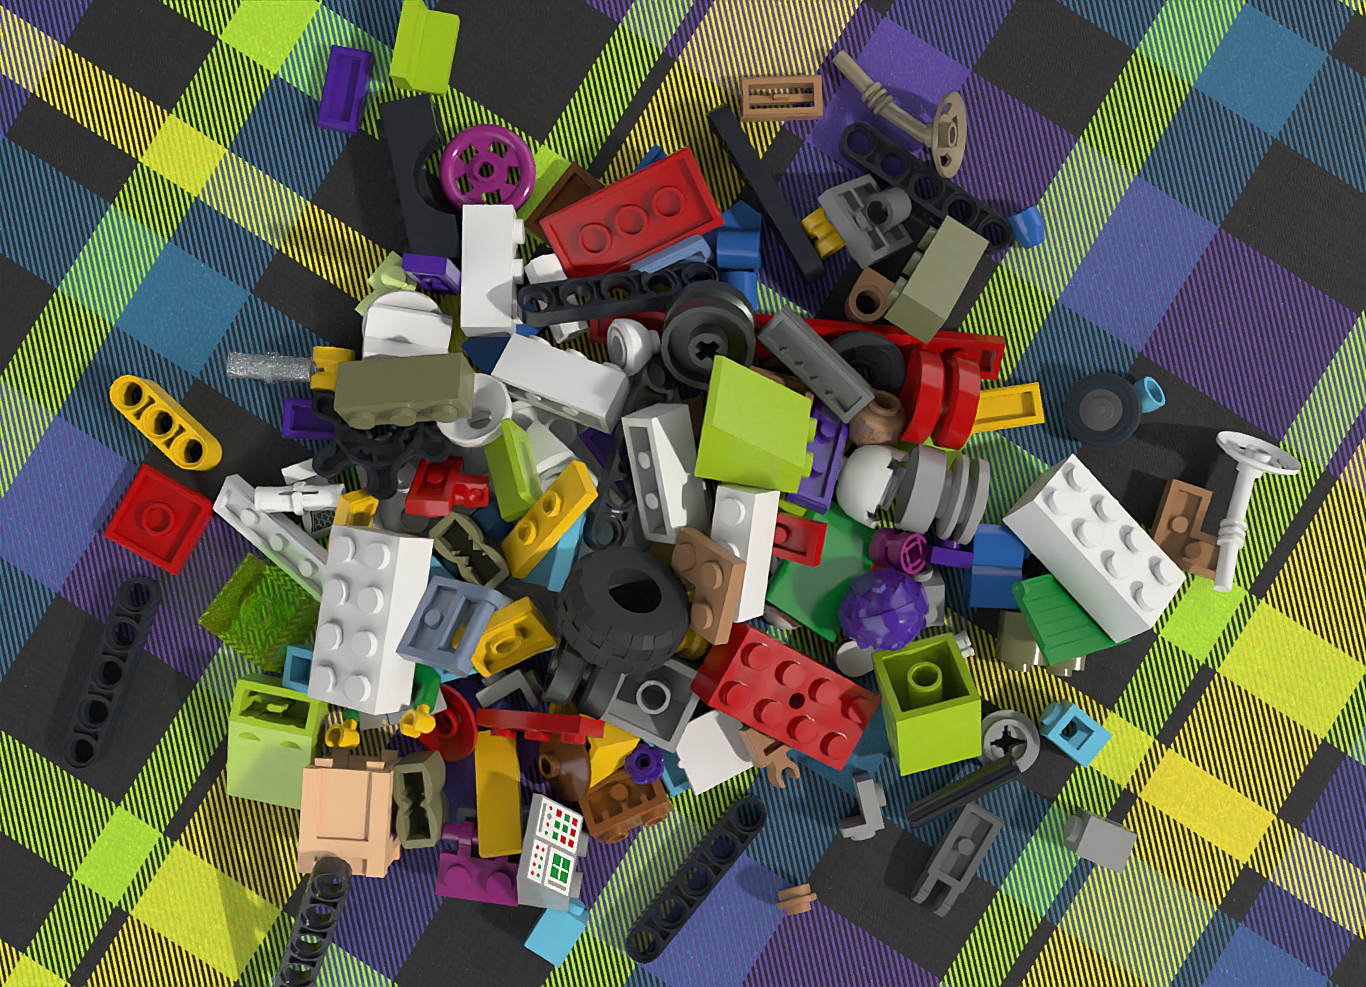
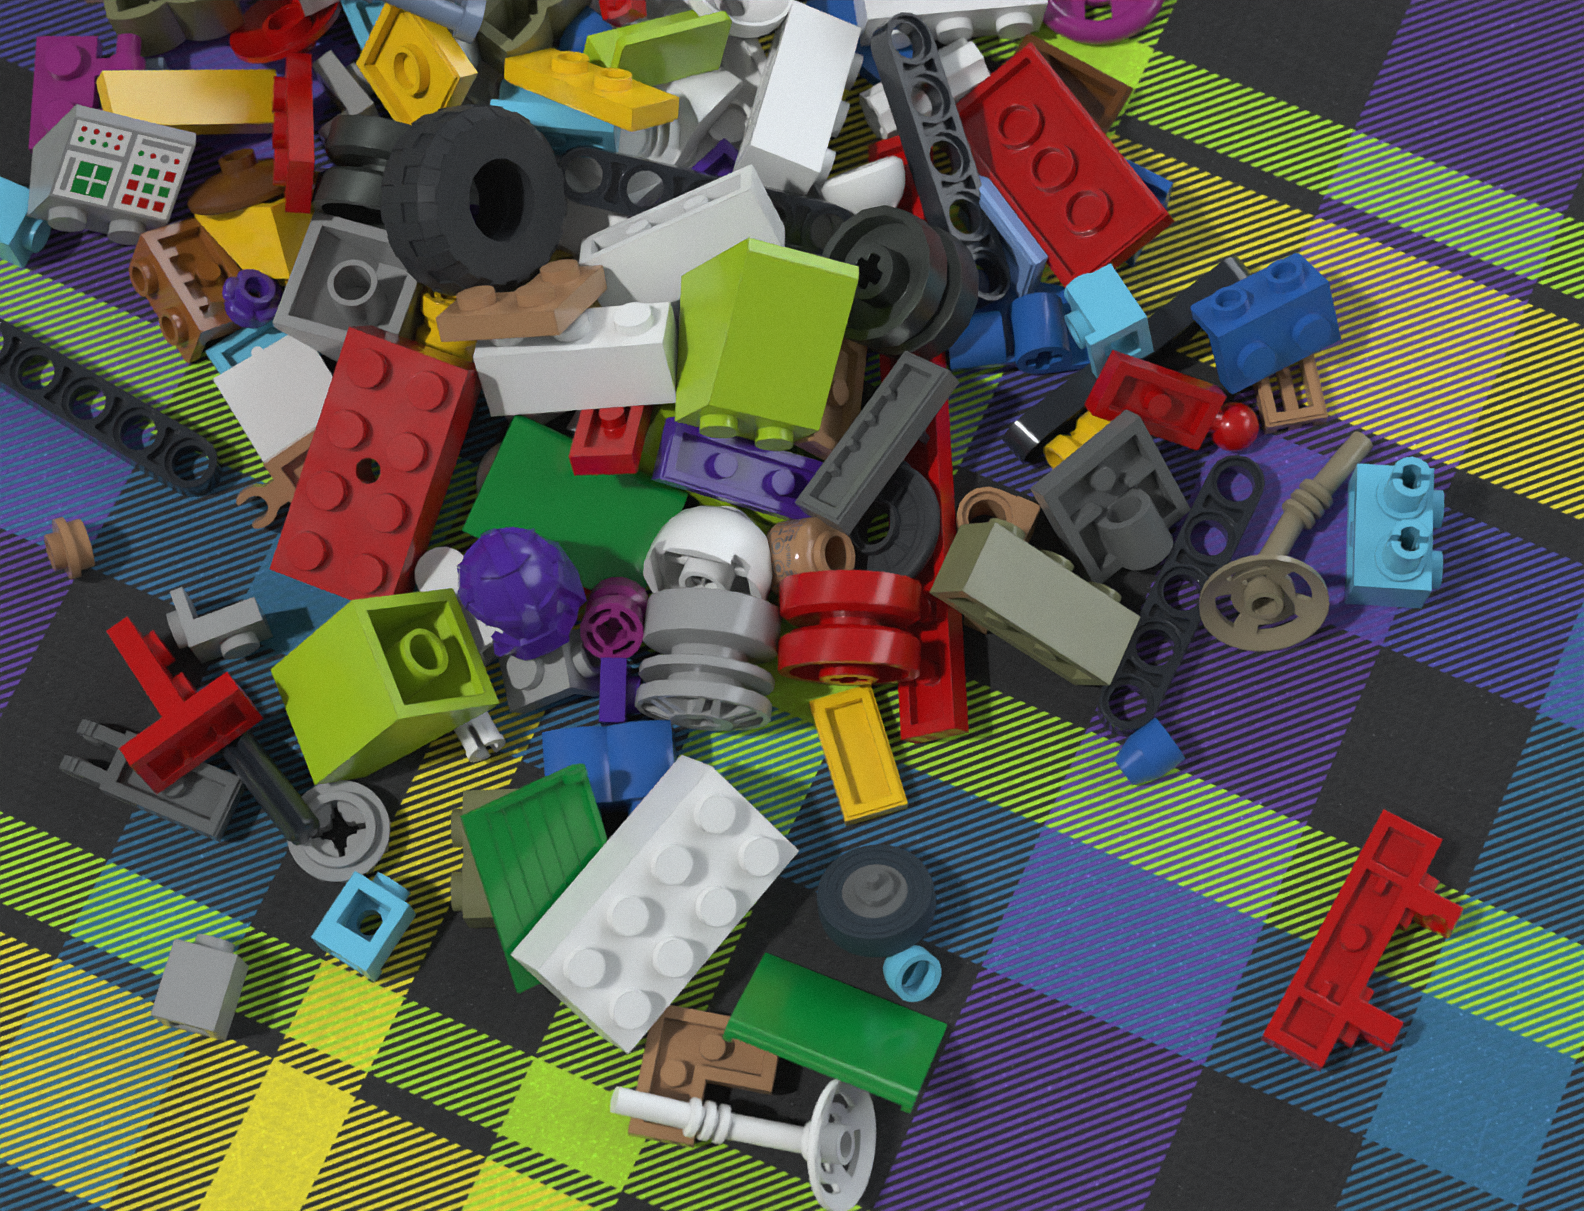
camera: 85 degrees right, 15 degrees down
(750, 201) = (1106, 317): none -> medium azure brick
(760, 97) = (1268, 321): none -> blue bracket
(808, 172) = (1171, 404): none -> red plate
(910, 47) = (1392, 534): none -> medium azure brick
(921, 841) = (191, 723): none -> red bracket
(1184, 446) = (836, 1030): none -> green piece
(1187, 138) = (1329, 989): none -> red hinge

